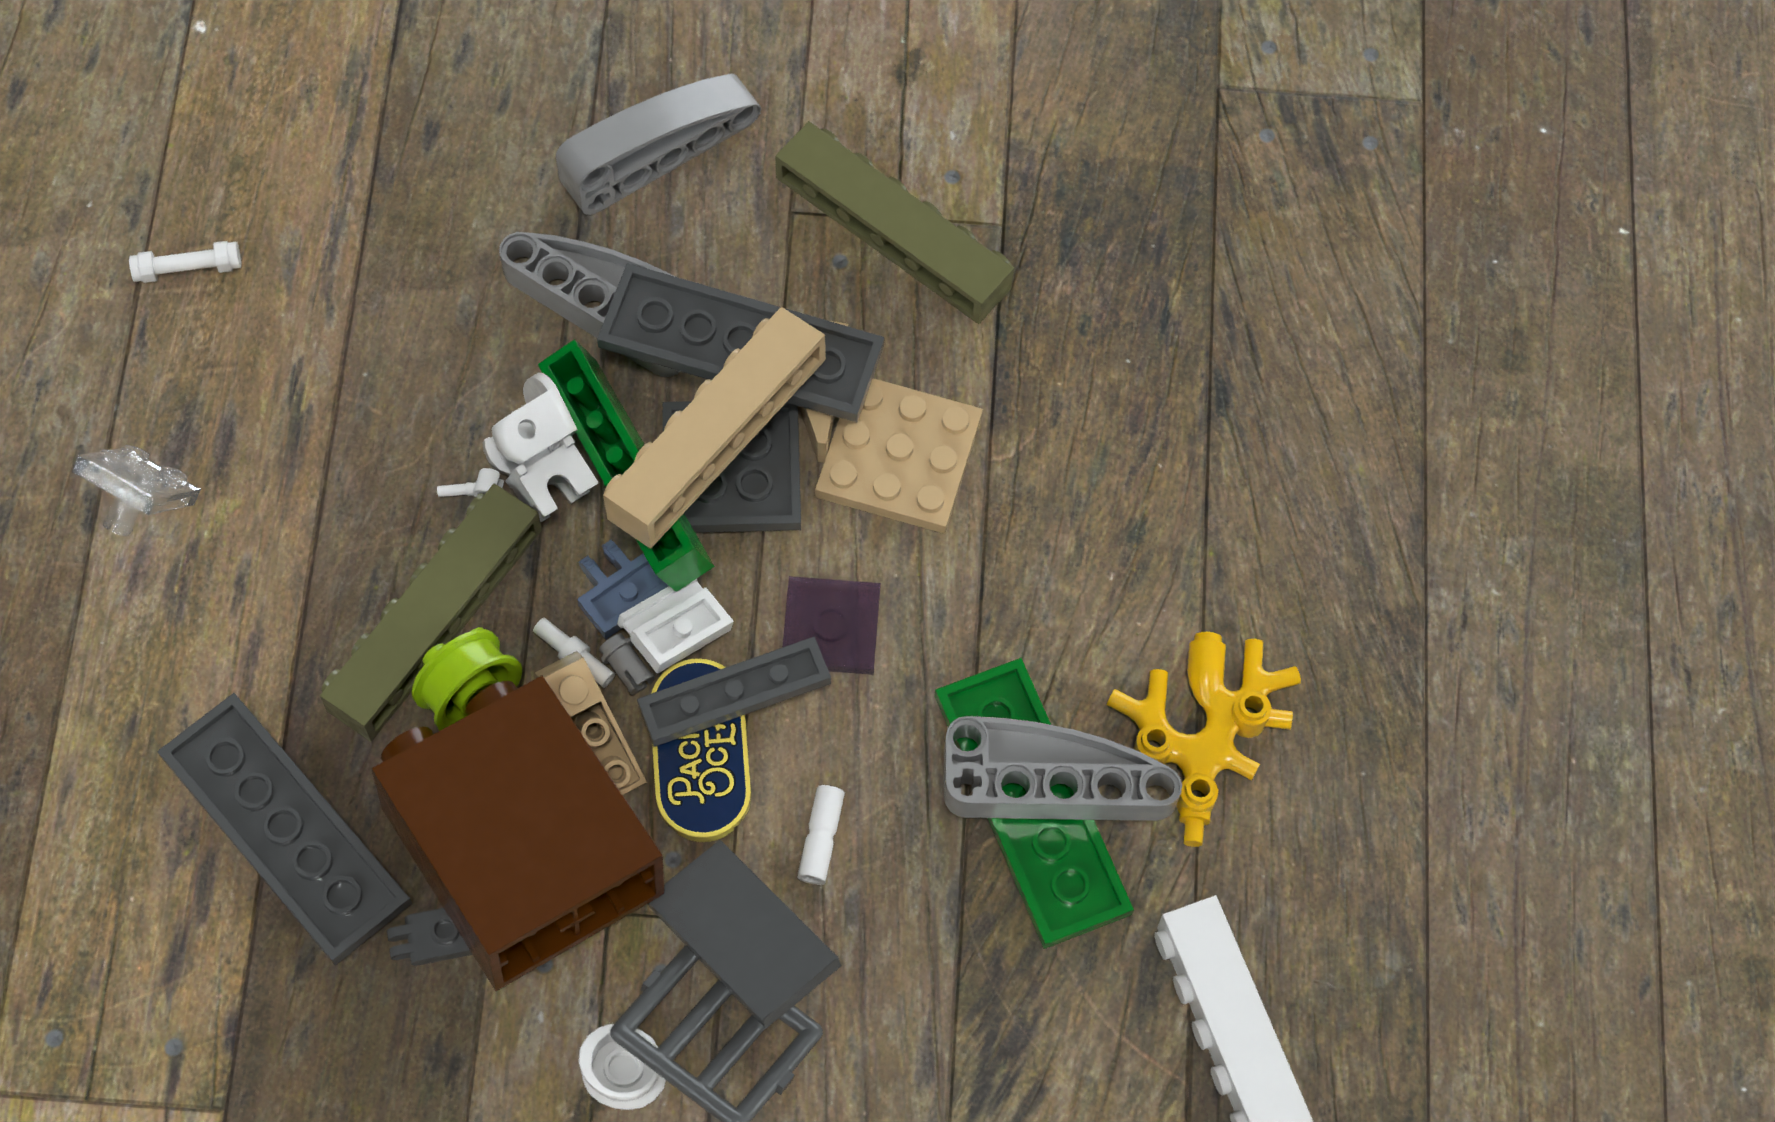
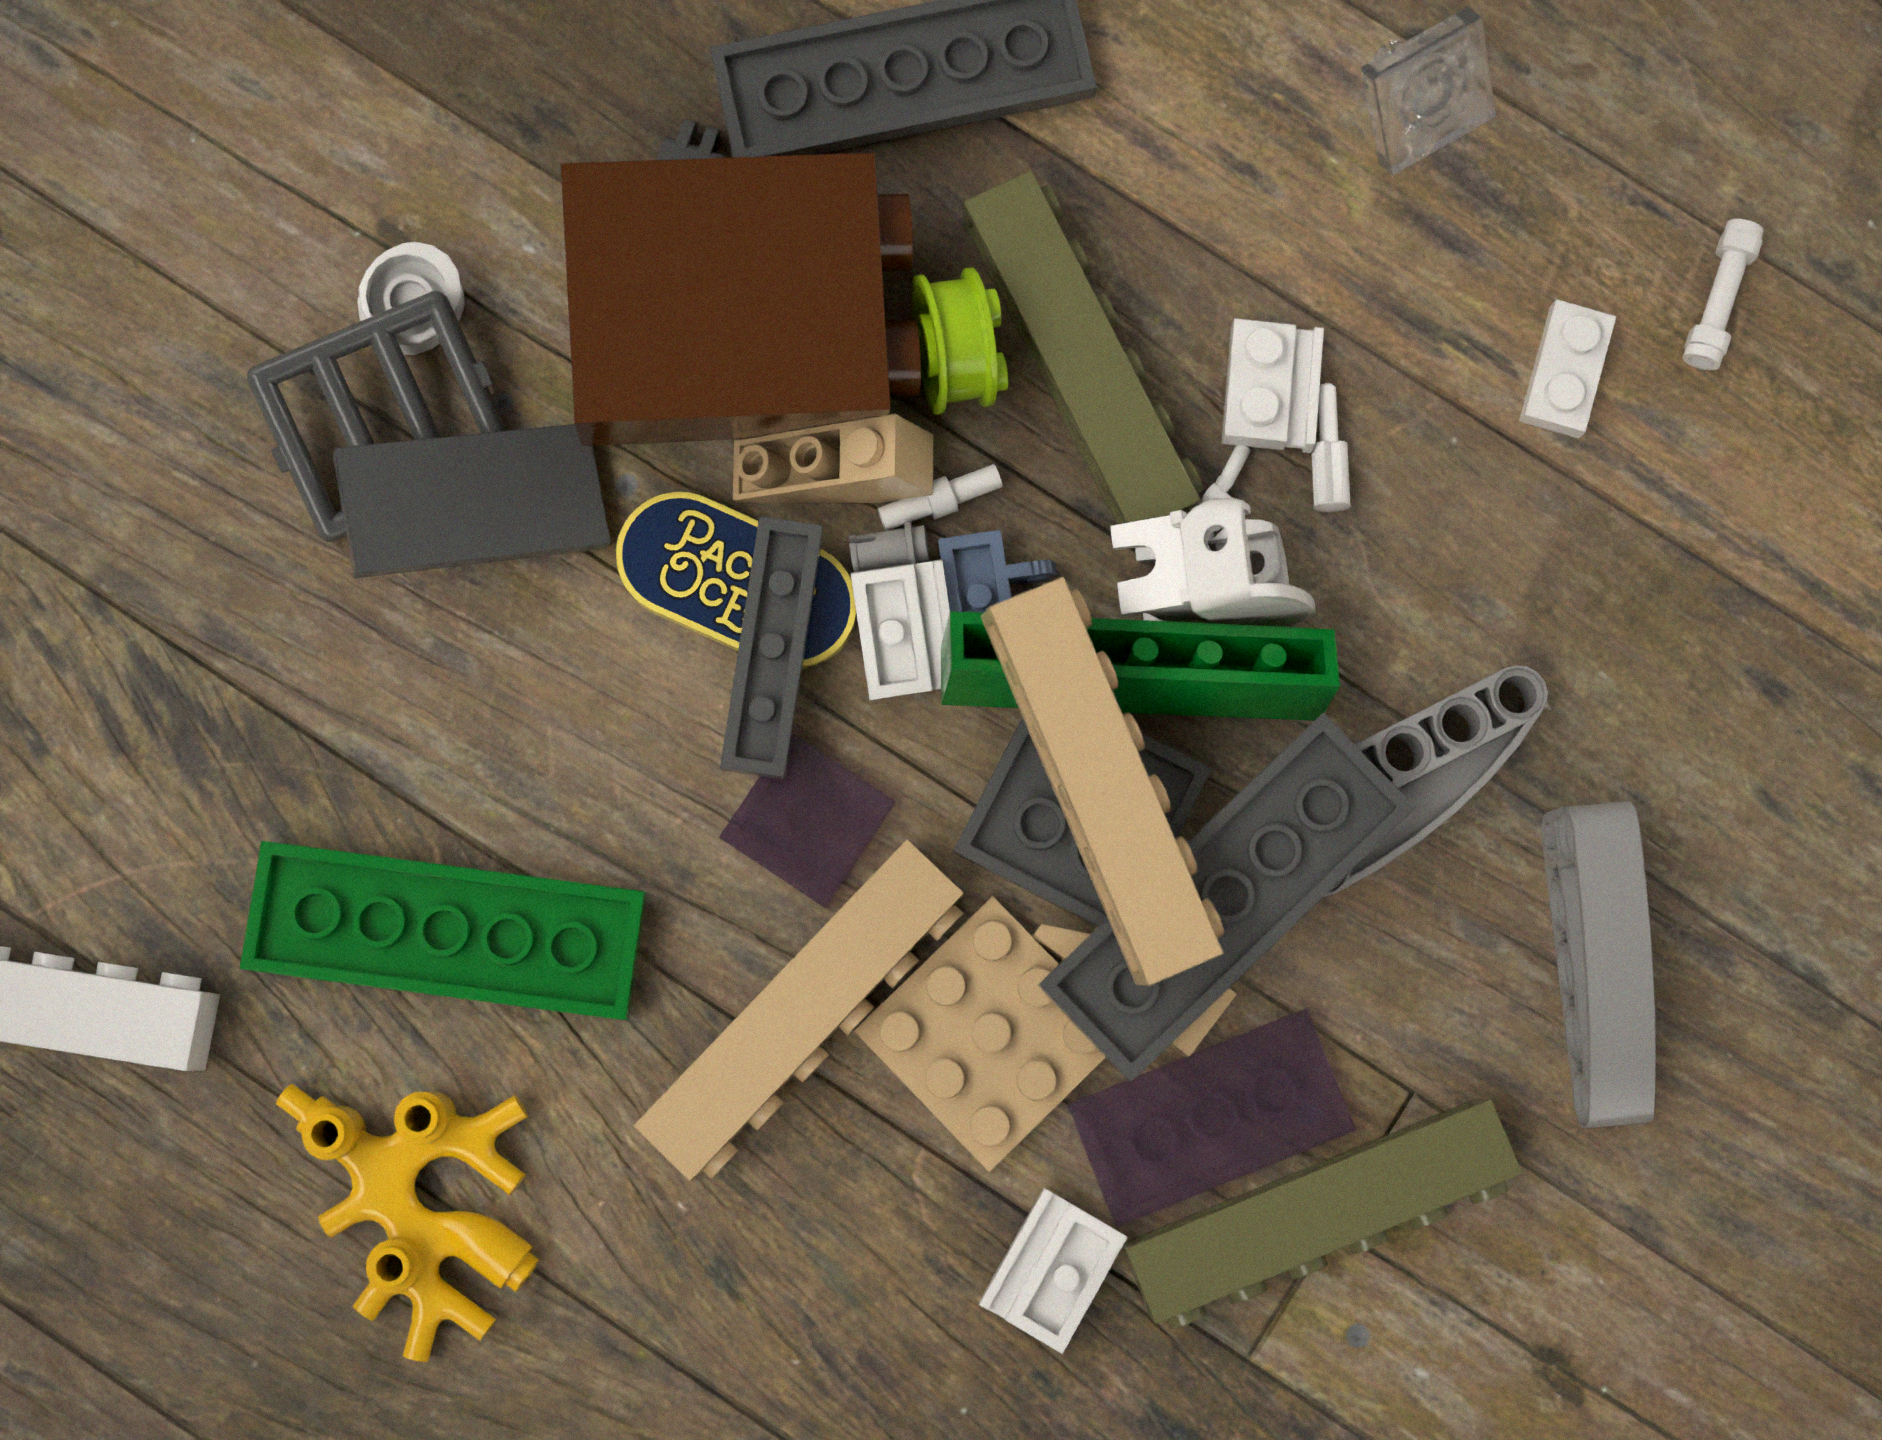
camera: 120 degrees right, 15 degrees up
(282, 328) = (1567, 368): none -> white plate
(387, 491) = (1272, 385): none -> white plate
(418, 434) = (1330, 458): none -> white axle
(819, 841) = (545, 657): white piece -> none
(855, 287) = (1211, 1117): none -> tile
(951, 560) = (799, 1011): none -> tan brick
(1017, 346) = (1052, 1270): none -> white plate
(1049, 755) = (467, 965): light grey beam -> none

